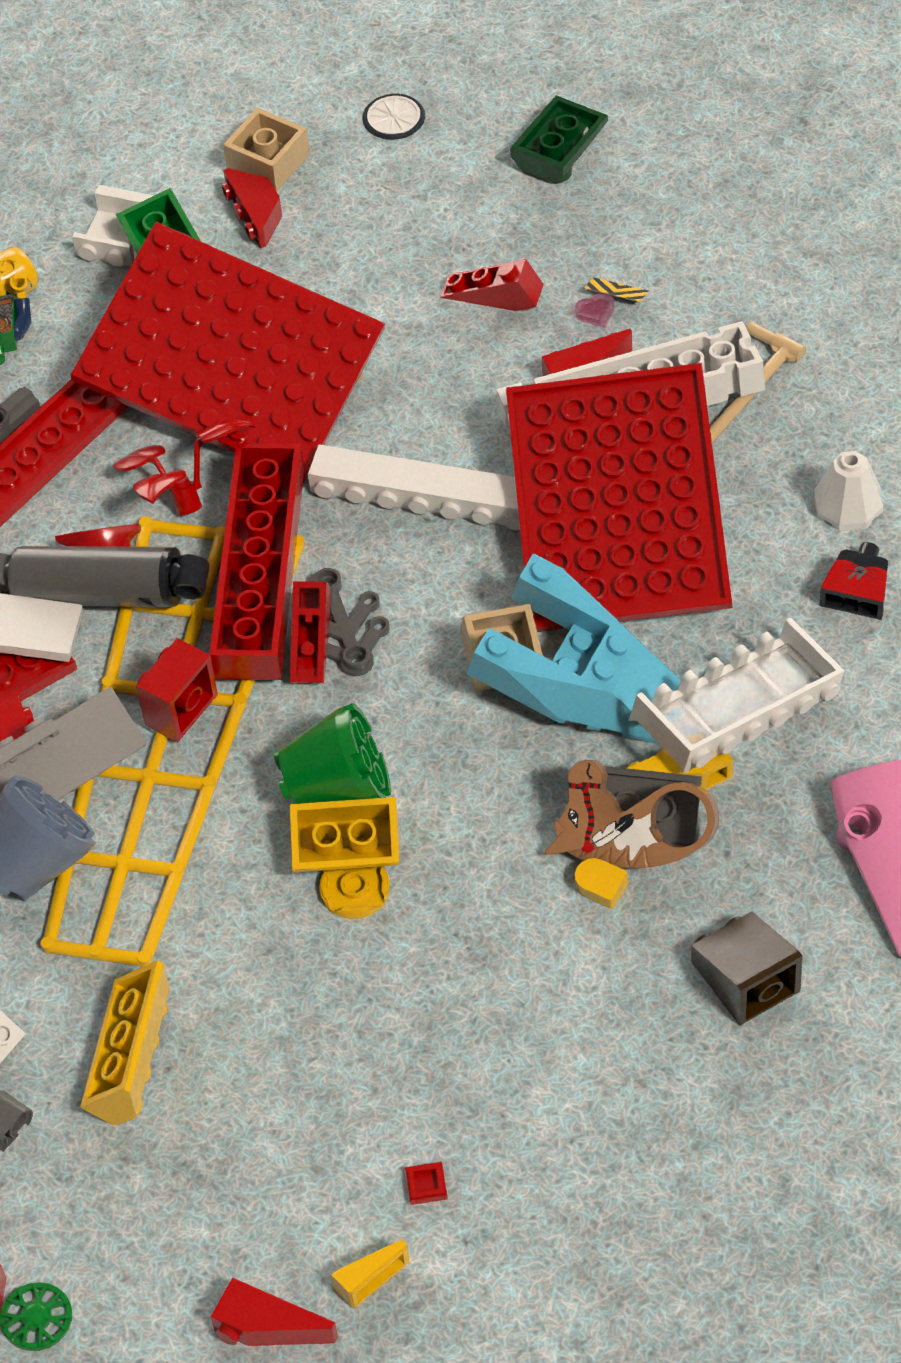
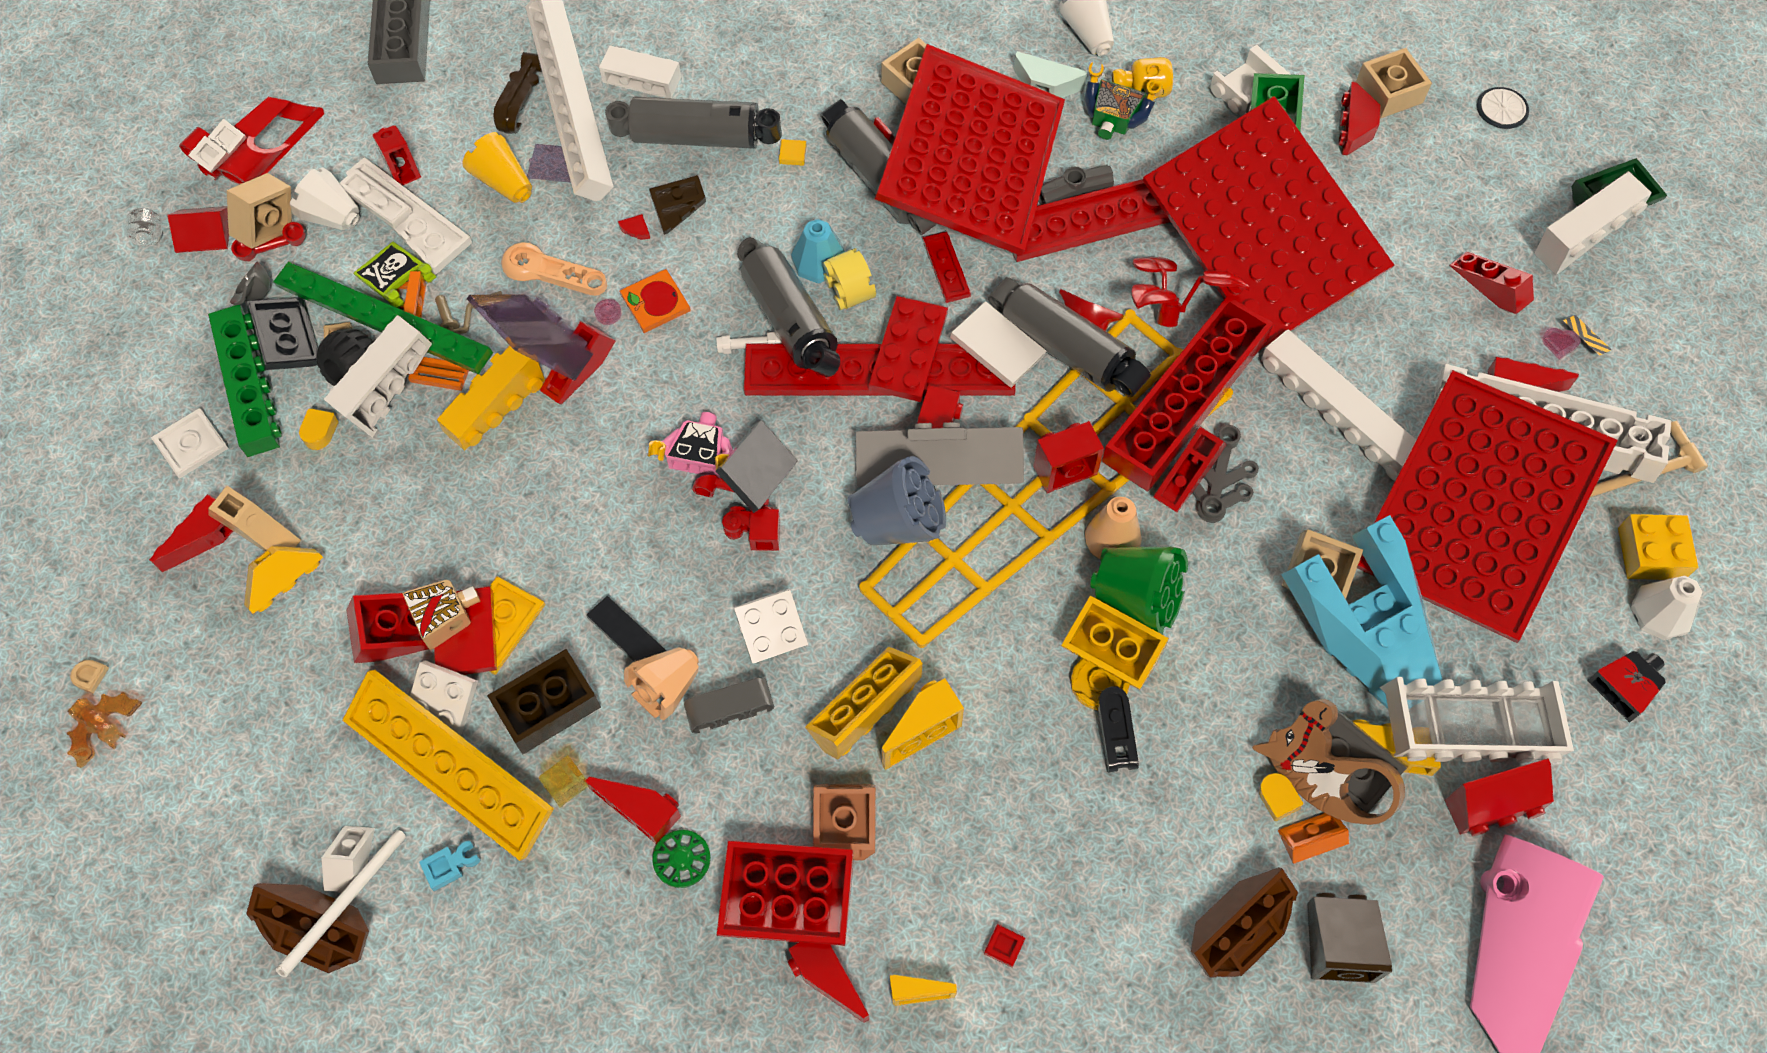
camera: 30 degrees right, 10 degrees up
(170, 1265) = (786, 893): none -> red slope
(185, 1170) = (845, 818): none -> nougat slope
(206, 1019) = (929, 718): none -> yellow slope
(268, 728) = (1114, 527): none -> light nougat cone
(402, 916) = (1117, 729): none -> black plate
(550, 179) = (1591, 222): none -> white wedge
(644, 1010) = (1244, 924): none -> reddish brown wedge
(658, 898) = (1314, 837): none -> orange slope
(803, 445) = (1657, 546): none -> yellow brick
(806, 752) = (1502, 798): none -> red slope

